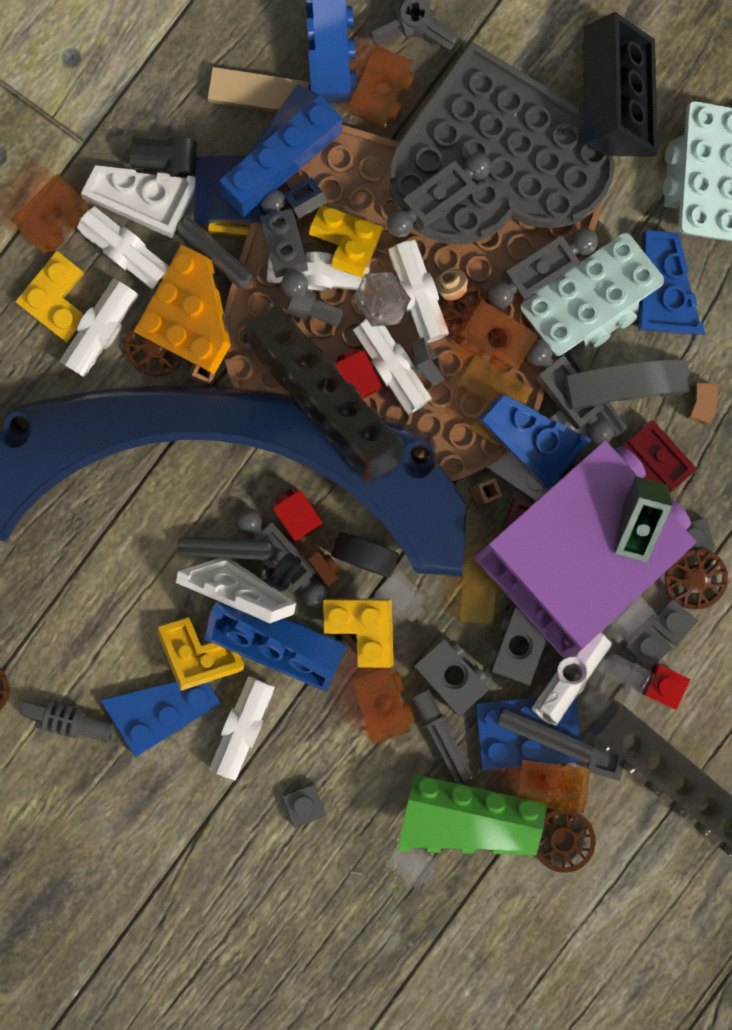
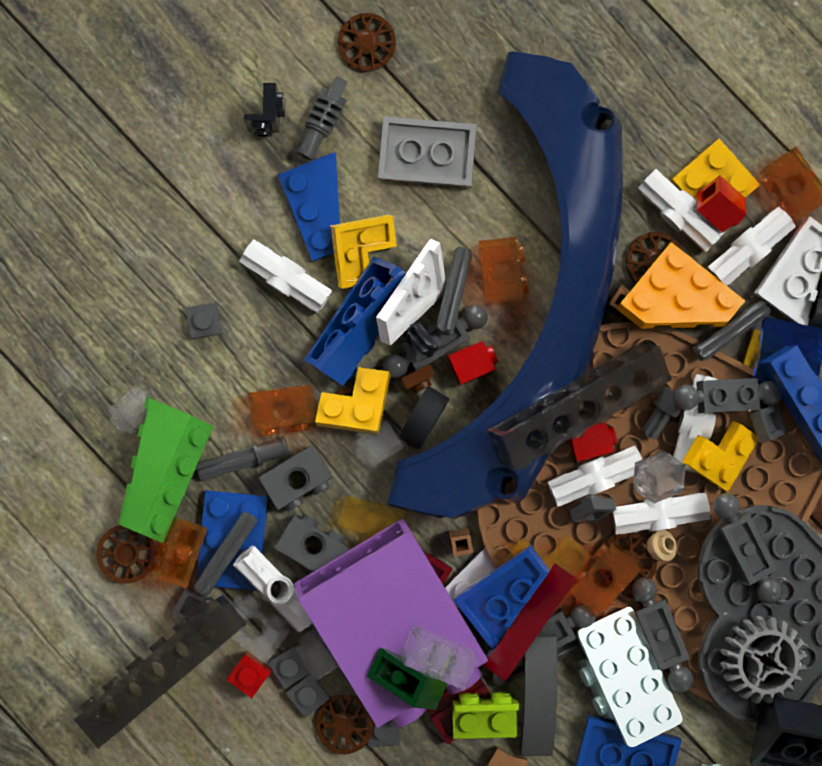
camera: 95 degrees right, 0 degrees up
(66, 774) = (273, 108): none -> black bracket
(83, 603) = (427, 152): none -> light grey plate
(84, 286) = (721, 204): none -> red brick
(215, 505) = (499, 290): none -> clear orange brick
(557, 405) = (530, 622): none -> dark red sticker
(558, 134) = (770, 648): none -> light grey gear
(614, 490) = (438, 657): none -> clear brick
(661, 434) = (484, 716): none -> lime bracket

